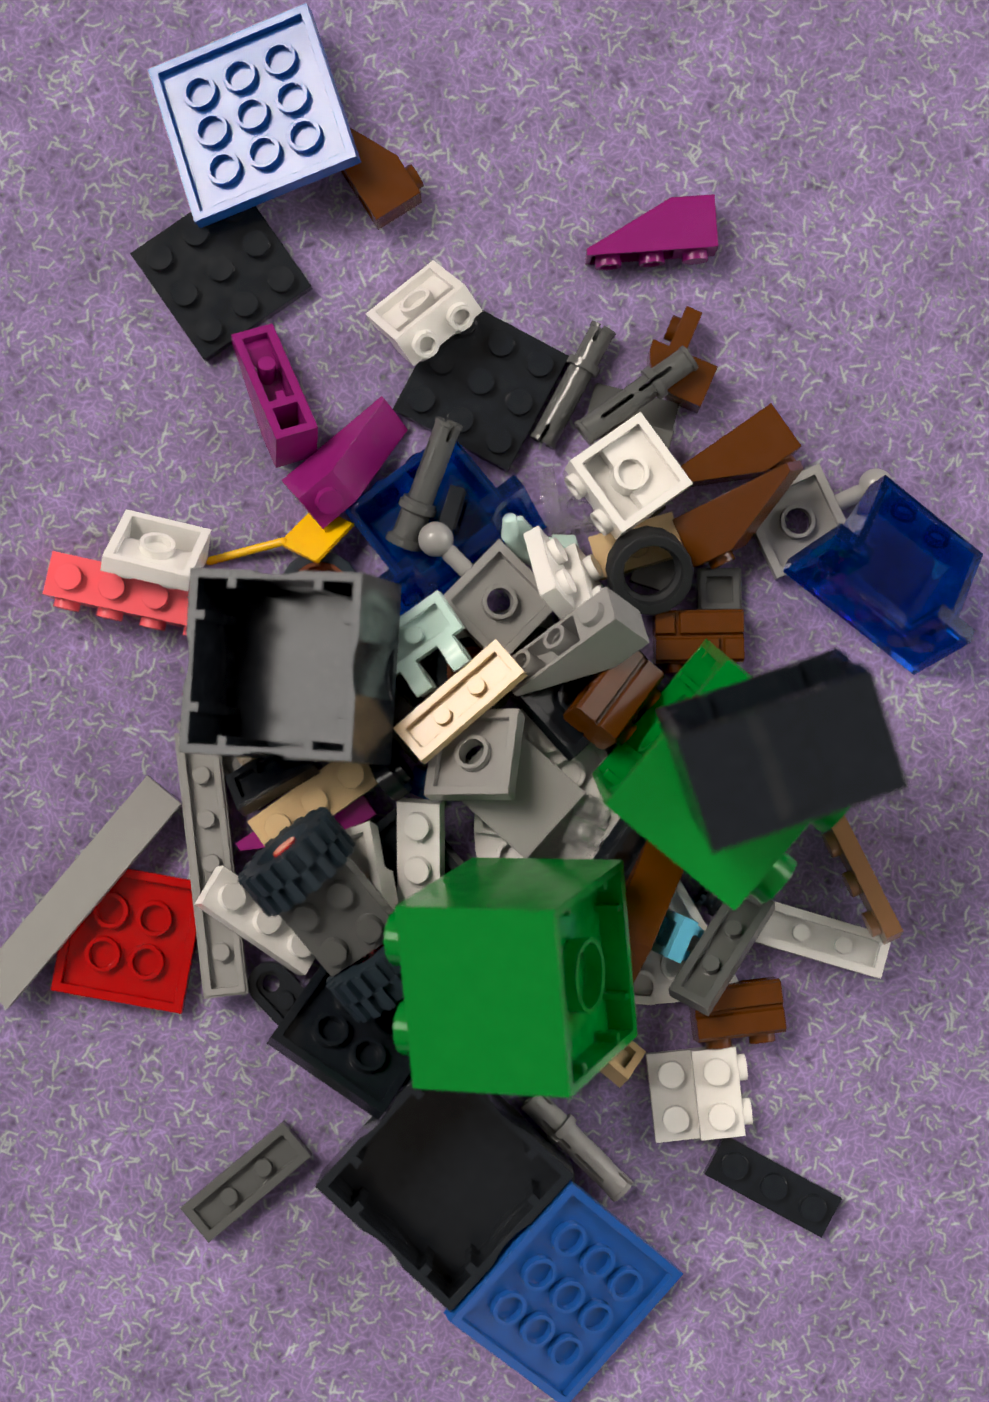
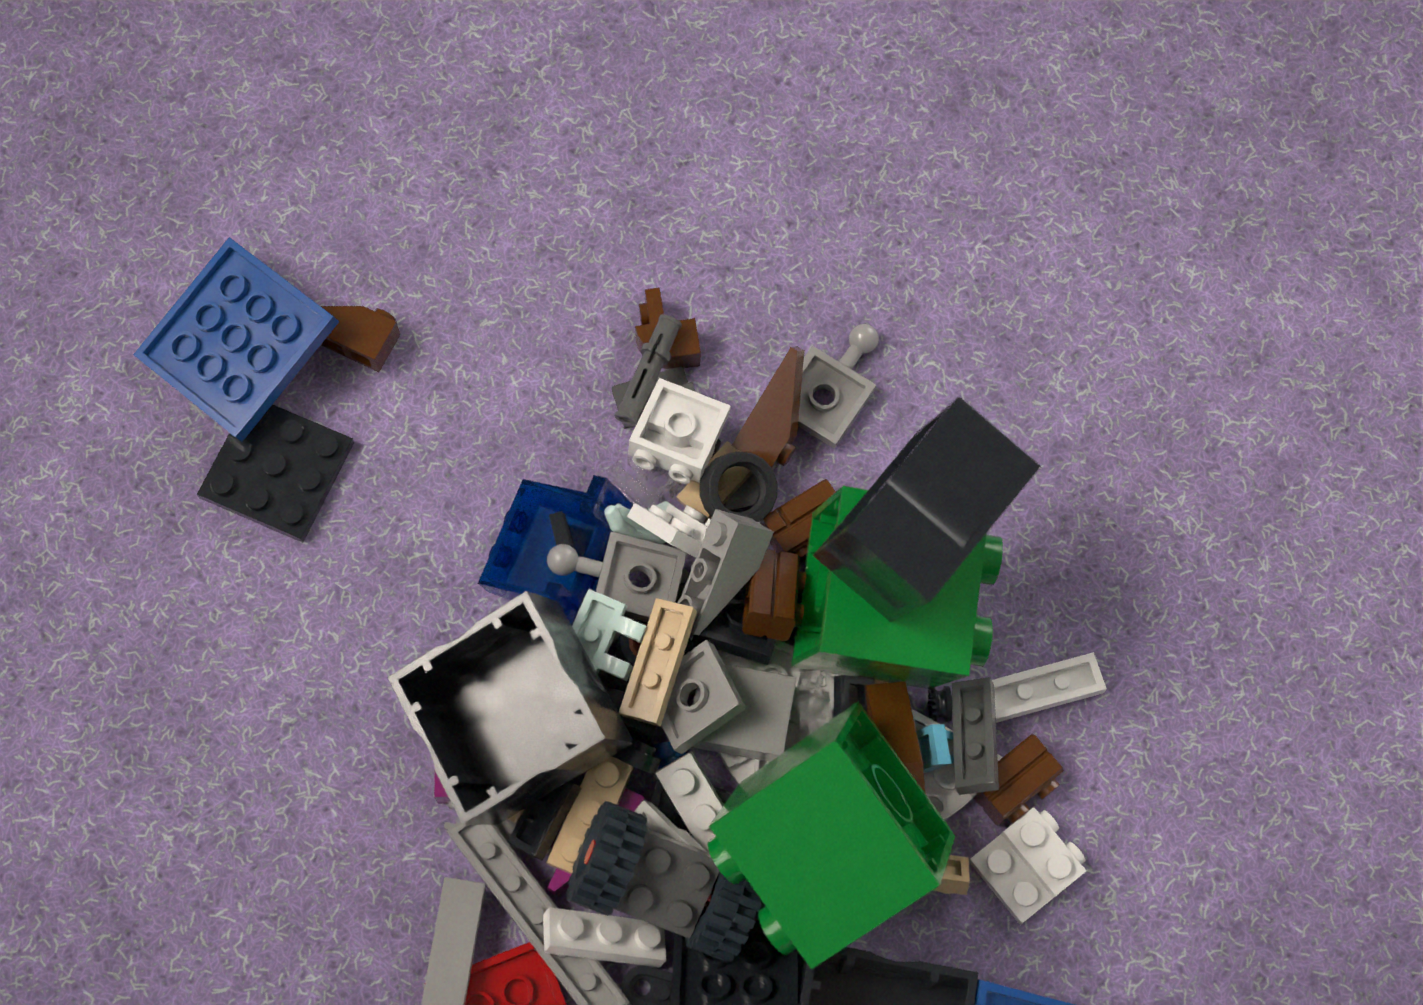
camera: 30 degrees left, 15 degrees down
(80, 582) = (342, 747): coral brick -> none
(156, 550) = (349, 696): white plate -> none
(275, 396) = (375, 532): magenta slope -> none
(304, 539) = (462, 616): yellow piece -> none
(346, 463) = (458, 551): magenta slope -> none
(419, 504) = (533, 545): dark grey pin -> none
(425, 312) = (452, 404): white plate -> none
(489, 383) = (524, 433): black plate -> none
(573, 384) = (594, 381): dark grey pin -> none
(583, 1151) = (989, 969): light grey pin -> none
(672, 230) = (598, 248): magenta slope -> none
(719, 588) = (796, 477): dark grey tile -> none
(746, 451) = (752, 367): reddish brown slope -> none
(772, 1185) = (1131, 901): black plate -> none
(862, 881) = (1043, 622): medium nougat plate -> none
(894, 576) = (909, 379): clear blue windscreen -> none

